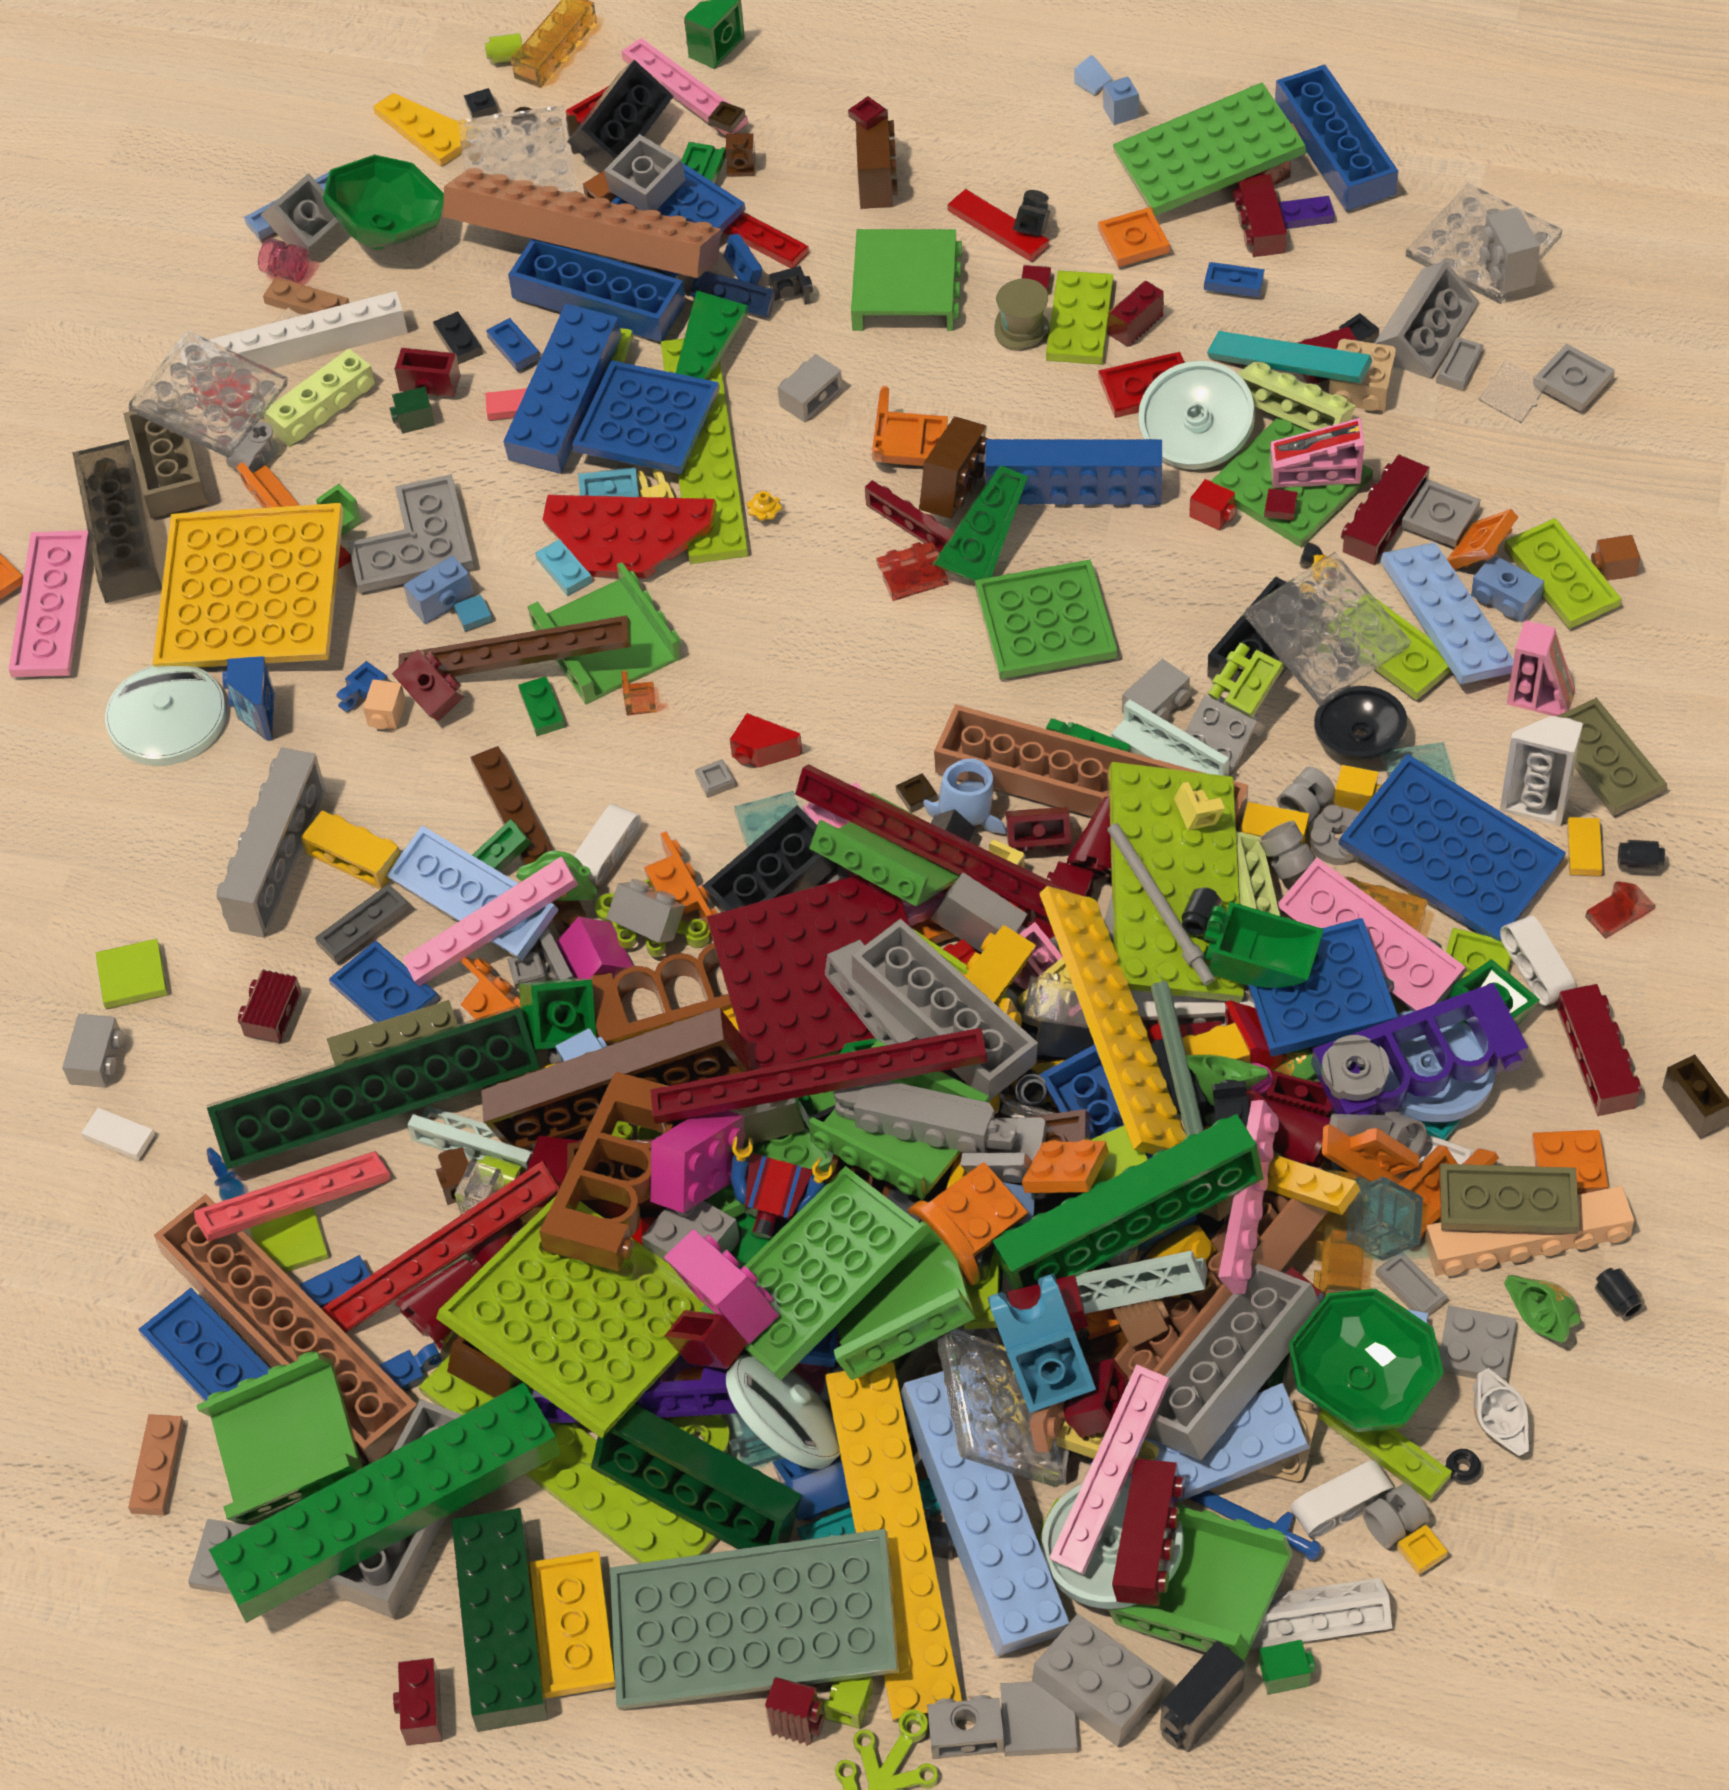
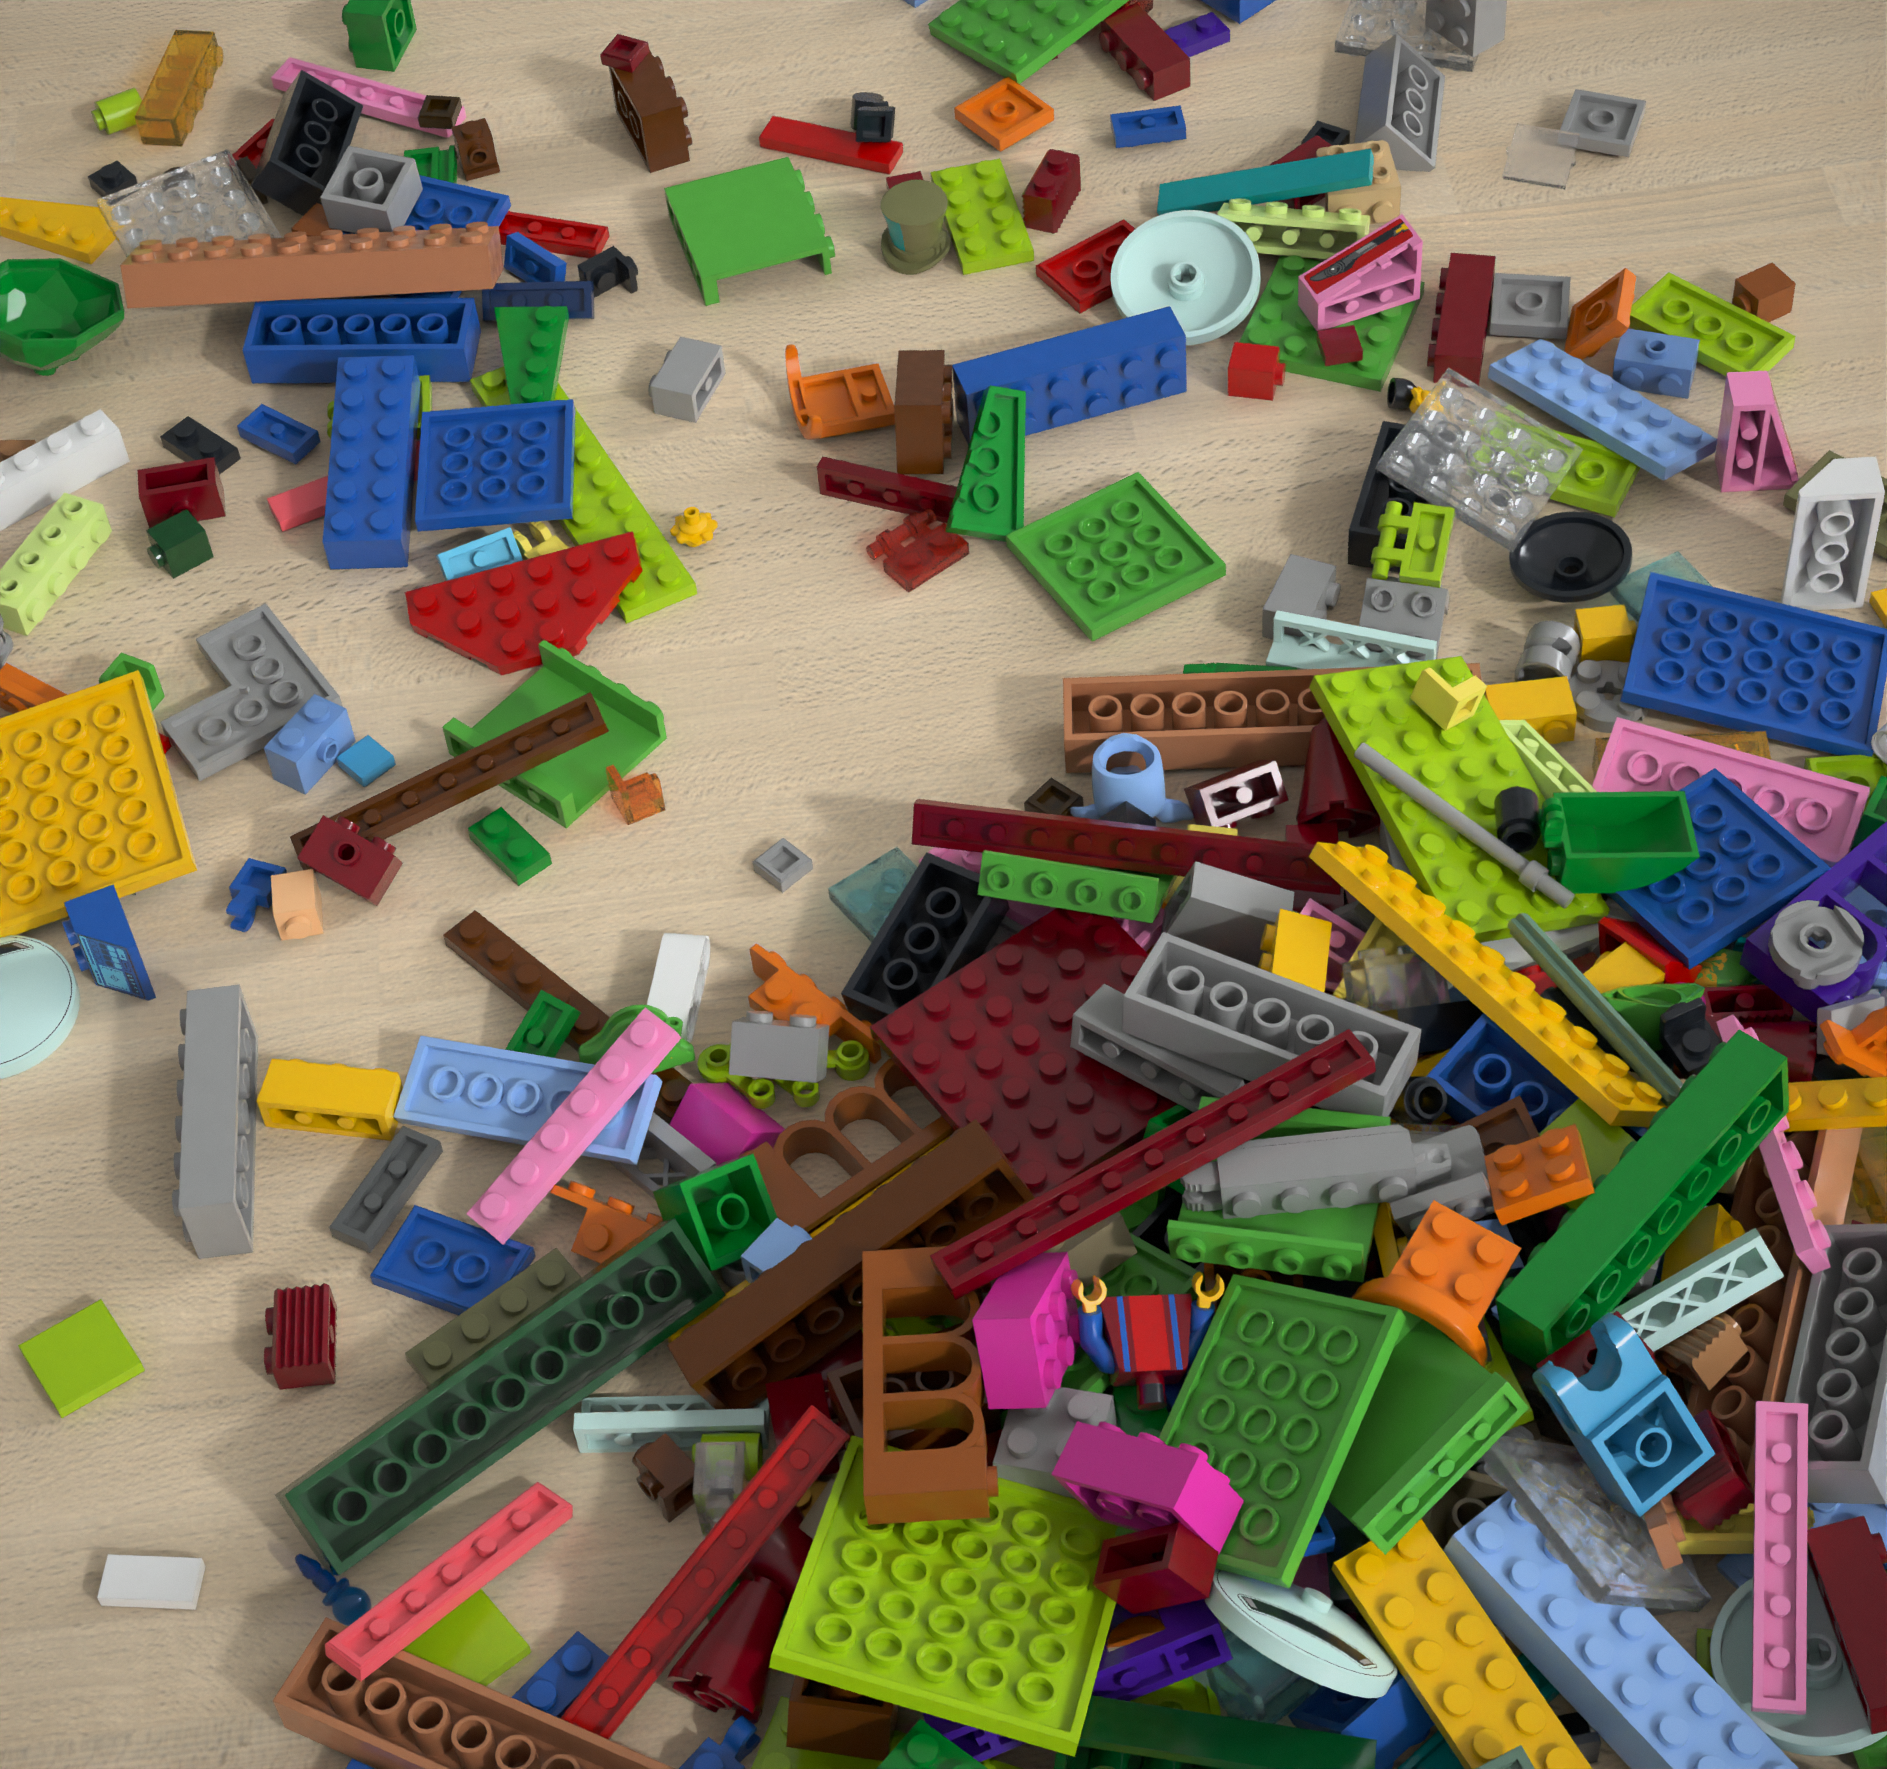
camera: 20 degrees left, 5 degrees down
(93, 1050) = (69, 1478): light grey brick -> none
(527, 970) = (642, 1179): light grey tile -> none
(563, 567) = (463, 673): medium azure plate -> none
(763, 742) = (829, 800): red slope -> none
(1285, 847) = (1562, 718): light grey wheel -> none
(1459, 363) = (1460, 145): light grey tile -> none

